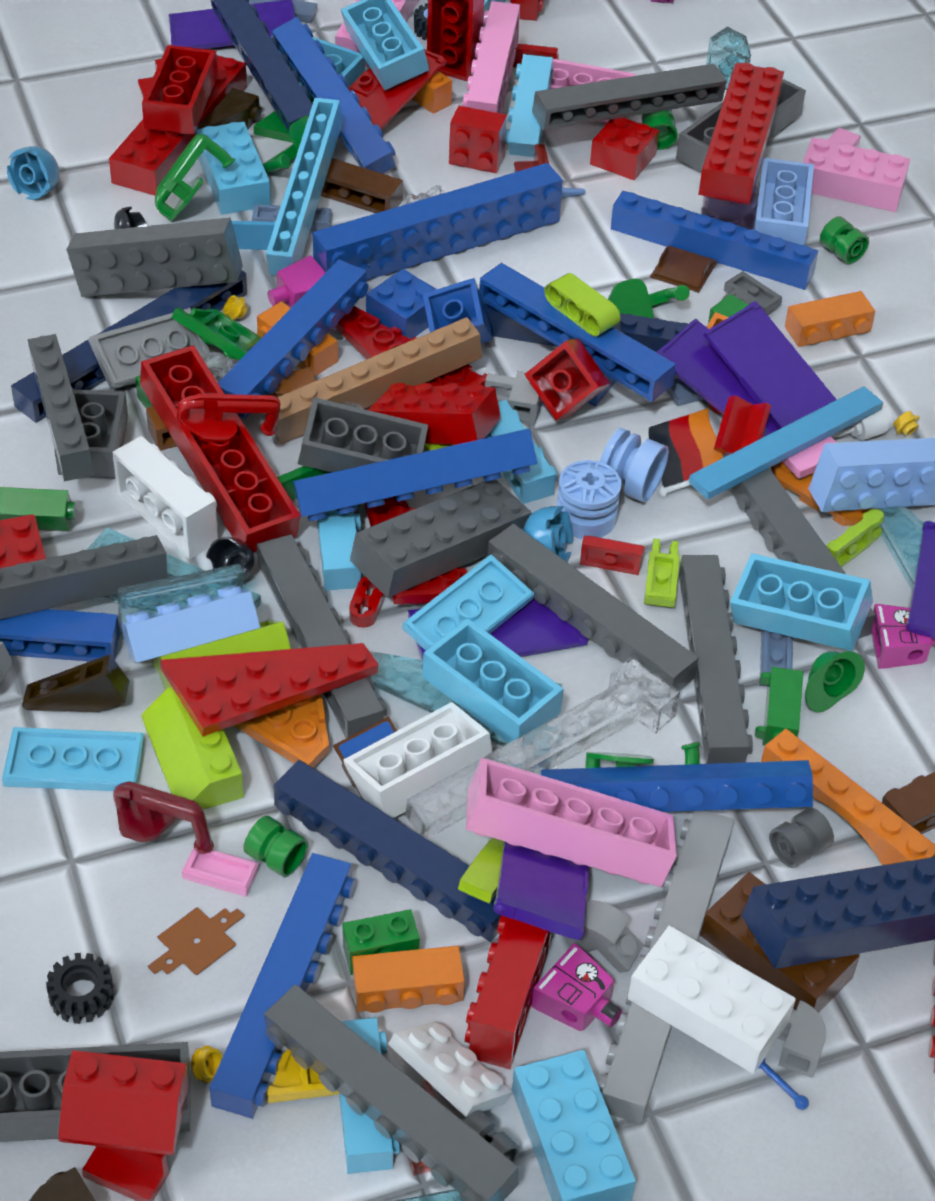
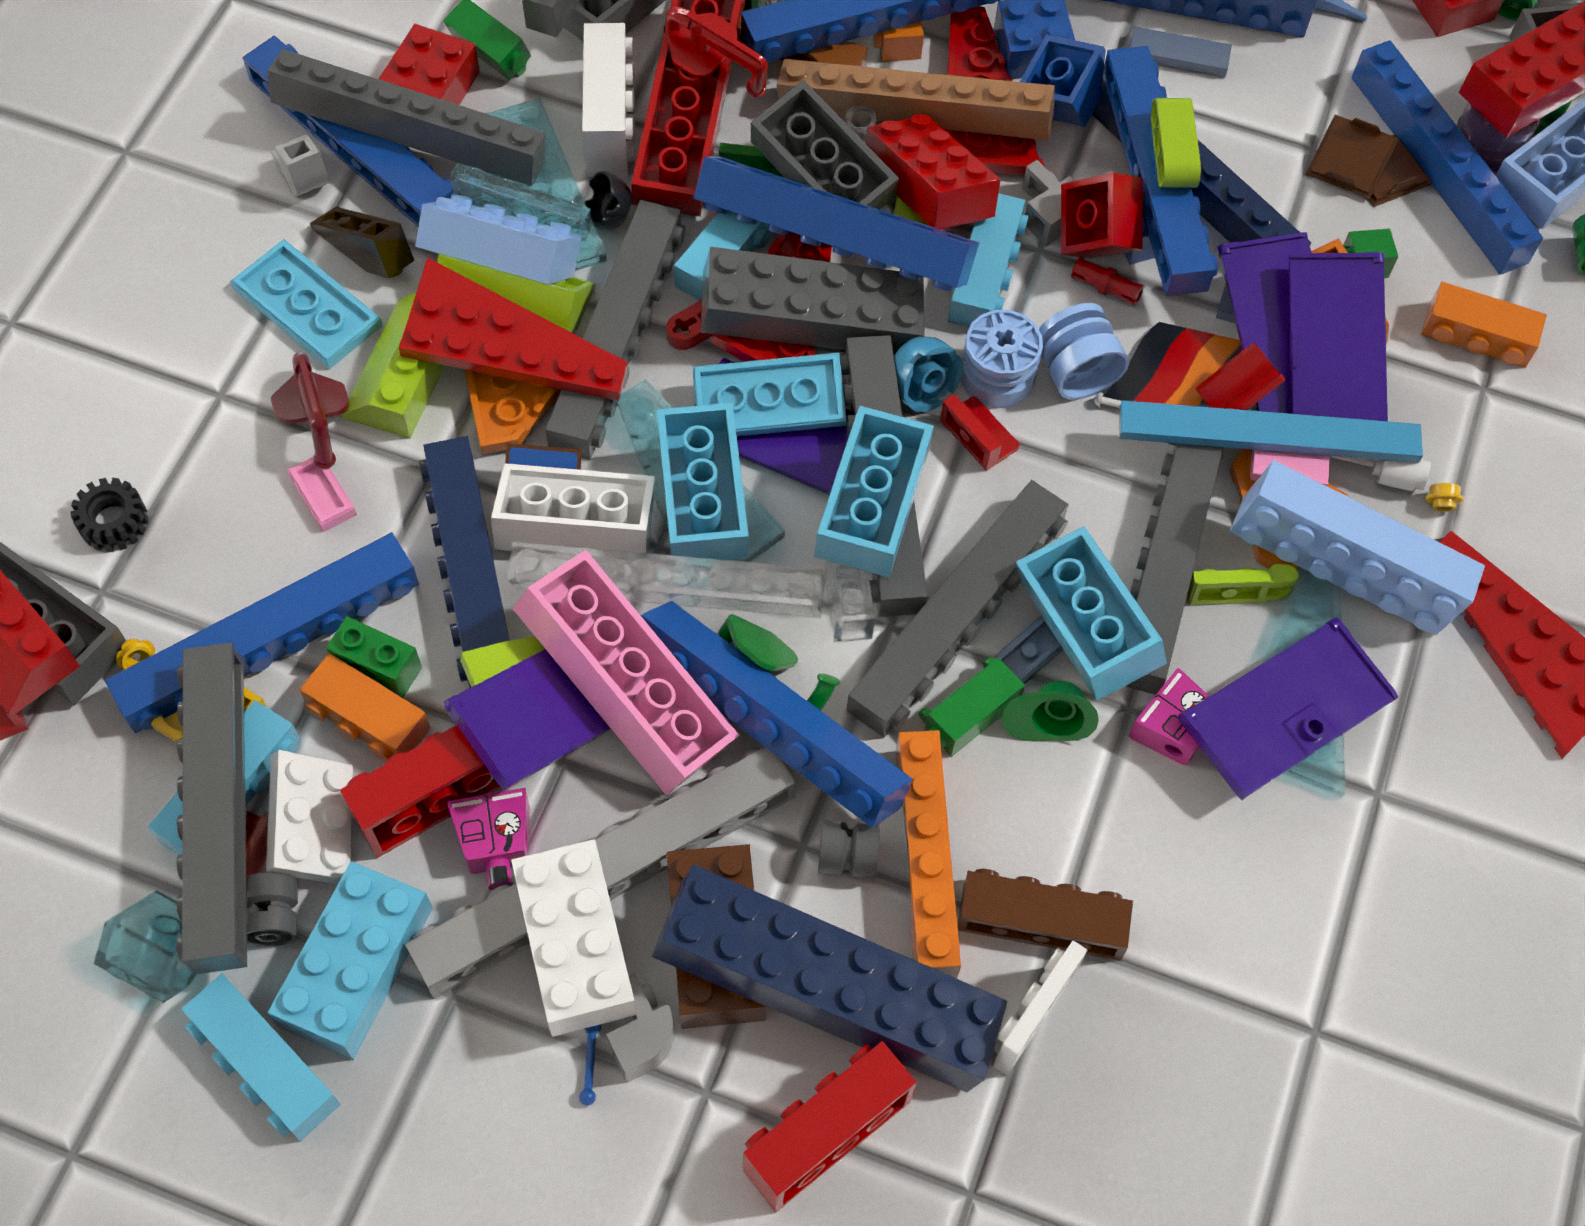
camera: 40 degrees right, 15 degrees up
(193, 955) = (253, 556): dark orange piece -> none
(278, 847) = (376, 503): green wheel -> none
(519, 259) = (1184, 51): none -> sand blue tile
(597, 421) = (1107, 281): none -> red pin
(607, 932) = (567, 801): light grey brick -> none
(613, 611) = (873, 491): none -> medium azure brick
(633, 298) = (1273, 174): green piece -> none
(662, 266) = (1352, 155): none -> reddish brown piece
(662, 575) = (1001, 485): lime hinge -> none
(751, 290) = (1423, 243): dark grey hinge -> none

